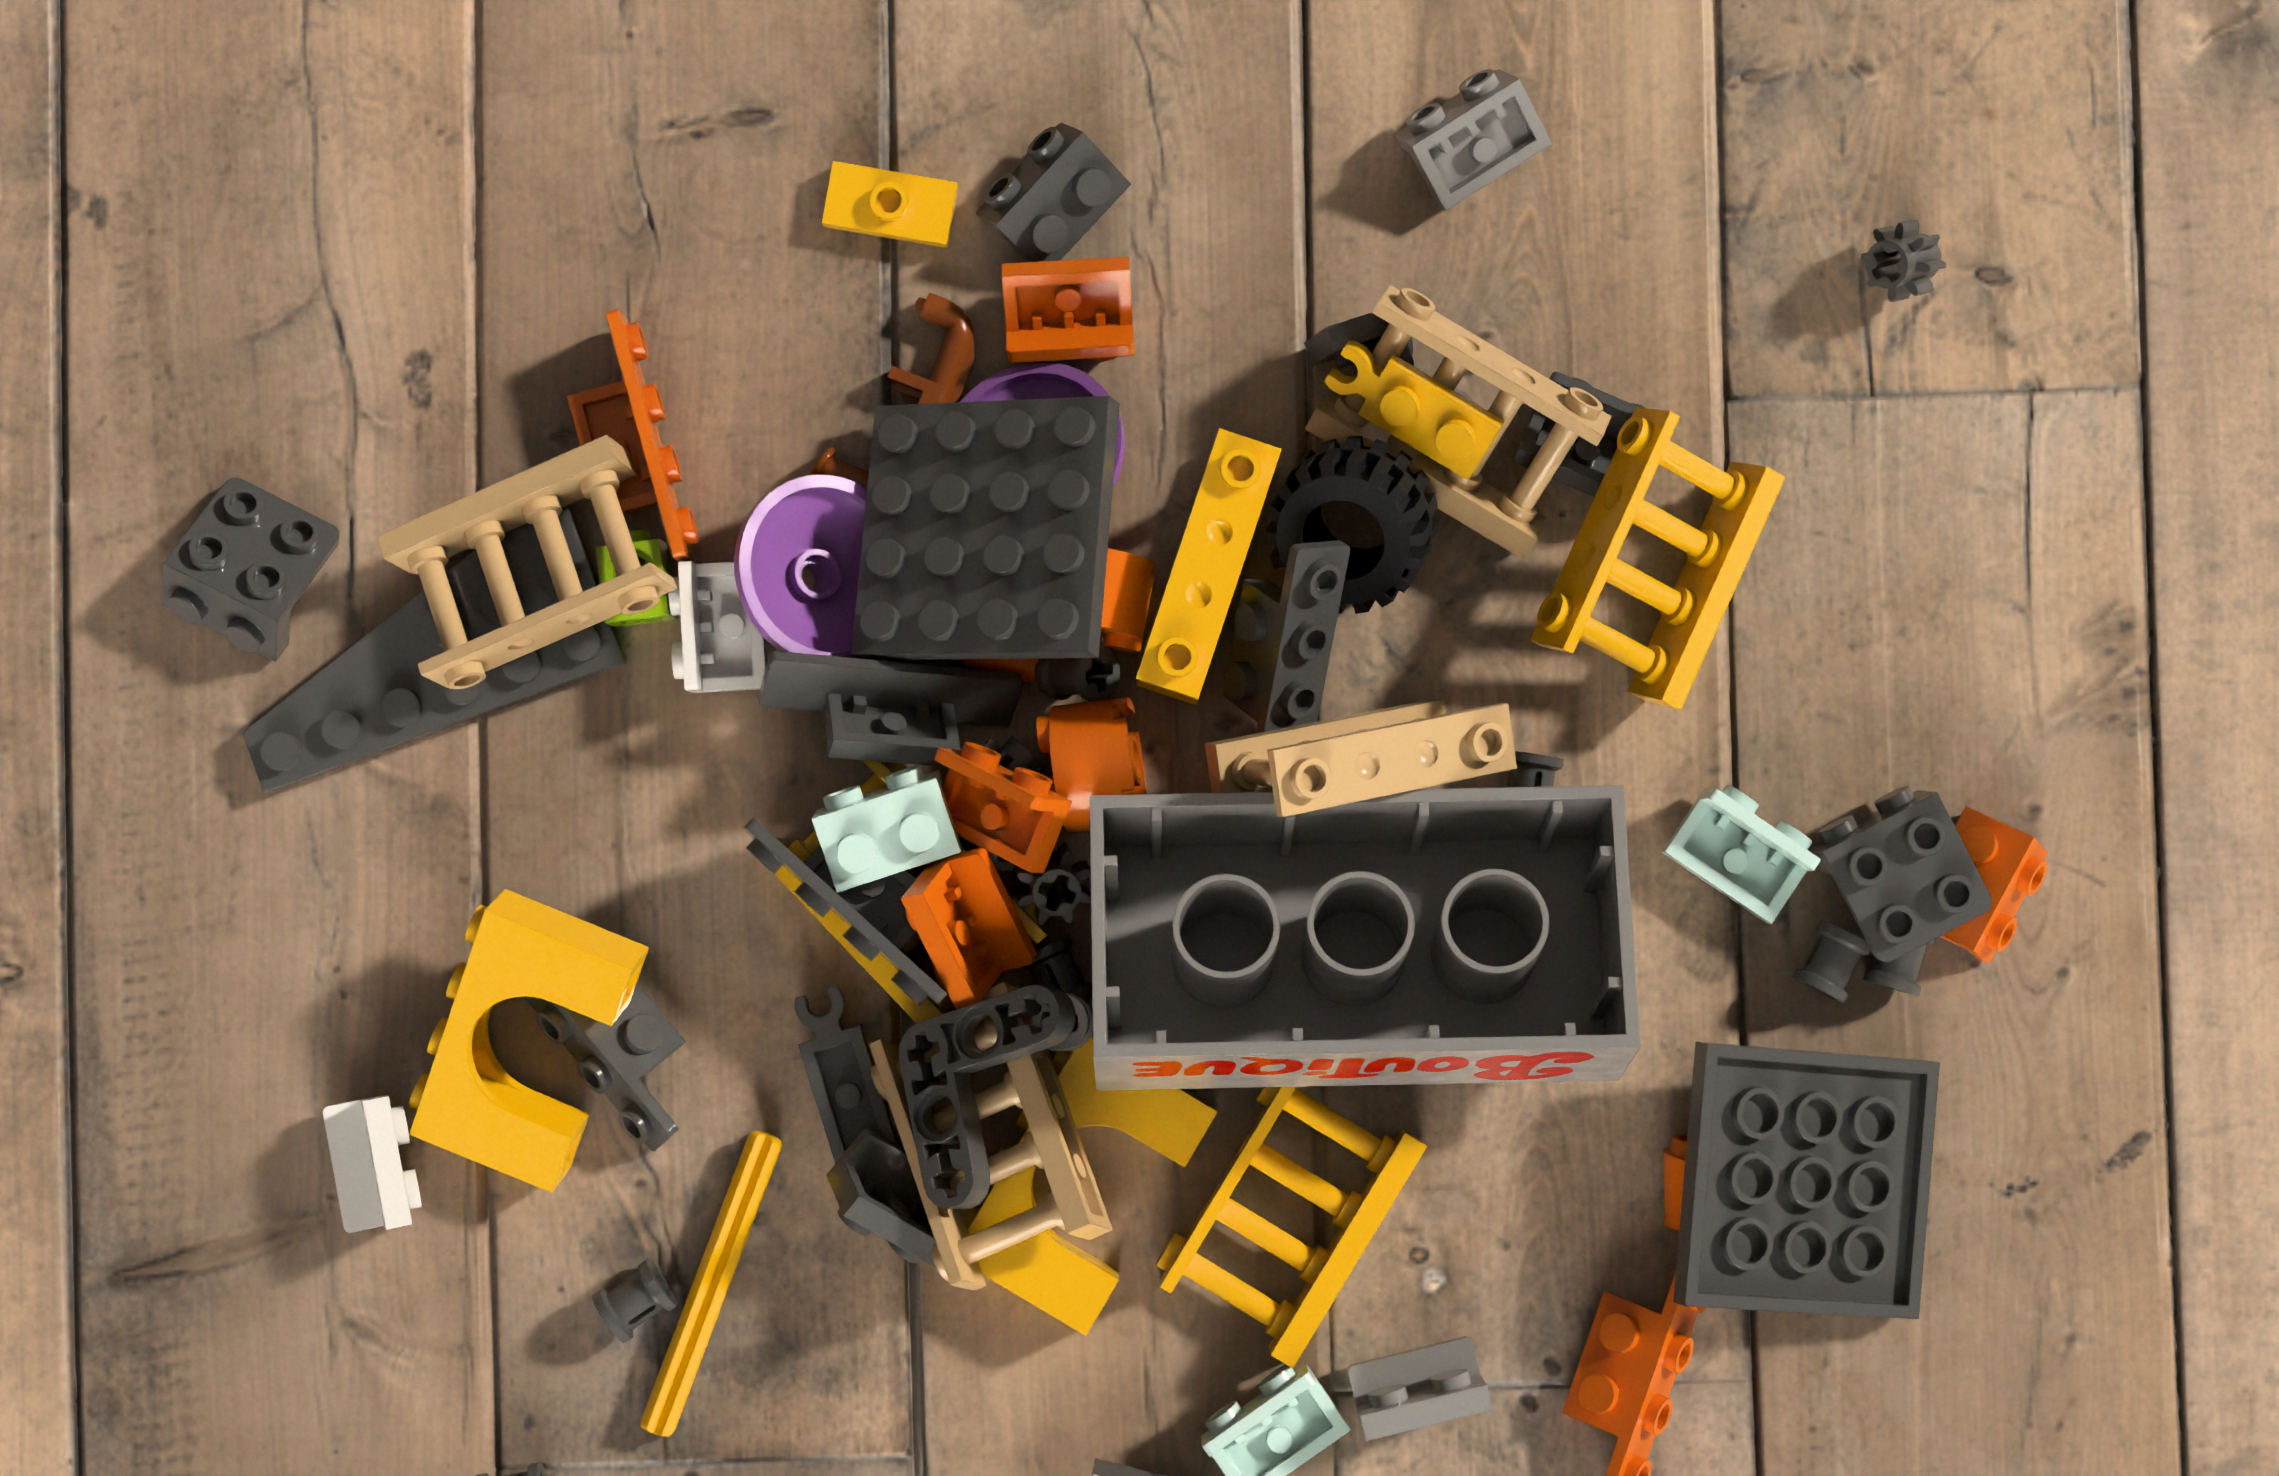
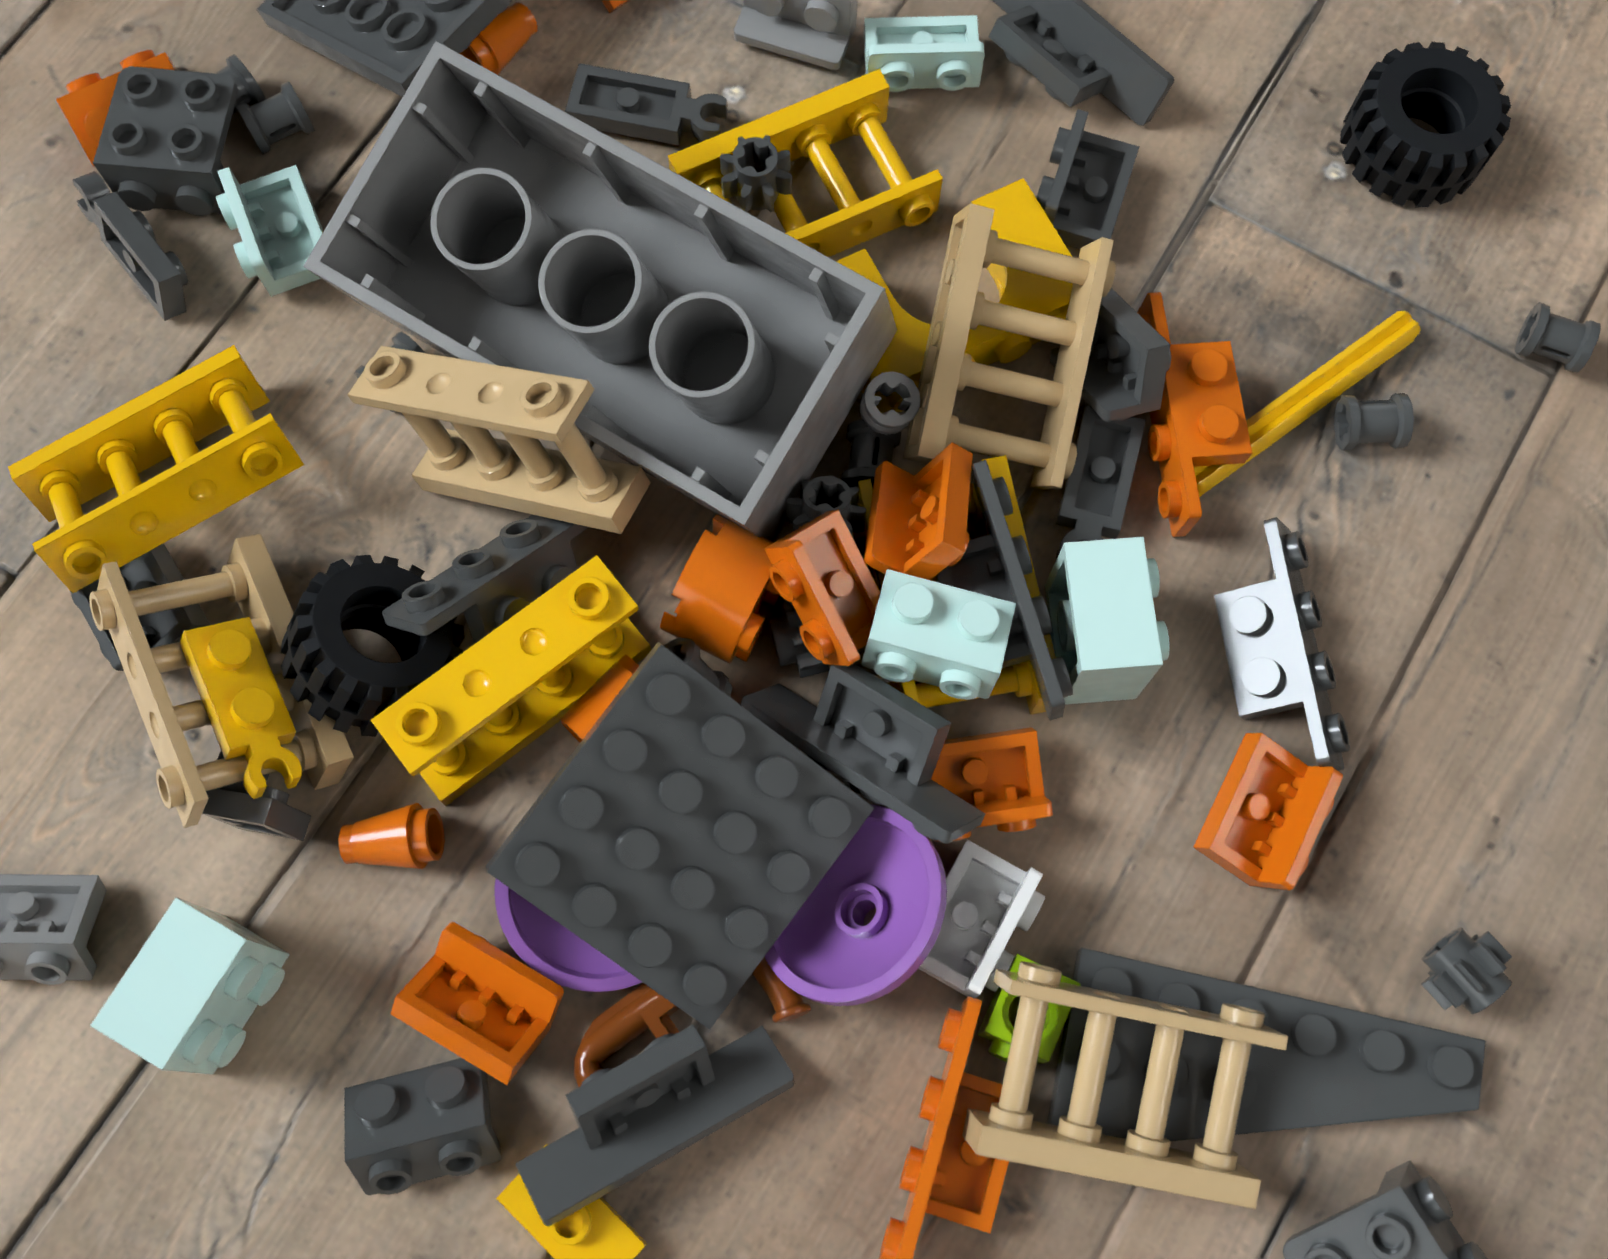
camera: 150 degrees left, 15 degrees down
(306, 836) = (1467, 971): none -> dark grey gear
(368, 1165) = (1553, 654): white bracket -> none
(468, 1096) = (1326, 723): yellow arch -> none
(536, 854) = (1267, 814): none -> orange bracket
(758, 940) = (1106, 618): none -> light aqua brick
(773, 752) = (997, 776): none -> orange bracket
(793, 1201) = (1197, 421): none -> orange bracket
(875, 315) = (649, 1113): none -> dark grey bracket
(956, 1062) = (996, 413): dark grey beam -> none
(1028, 1381) = (1088, 183): none -> dark grey bracket
(1231, 391) = (394, 839): none -> orange cone
(1290, 175) = (192, 990): none -> light aqua brick
(1332, 1192) = (756, 173): none -> dark grey gear
(1504, 1198) = (642, 105): none -> dark grey plate
(1864, 753) = (134, 246): none -> dark grey plate

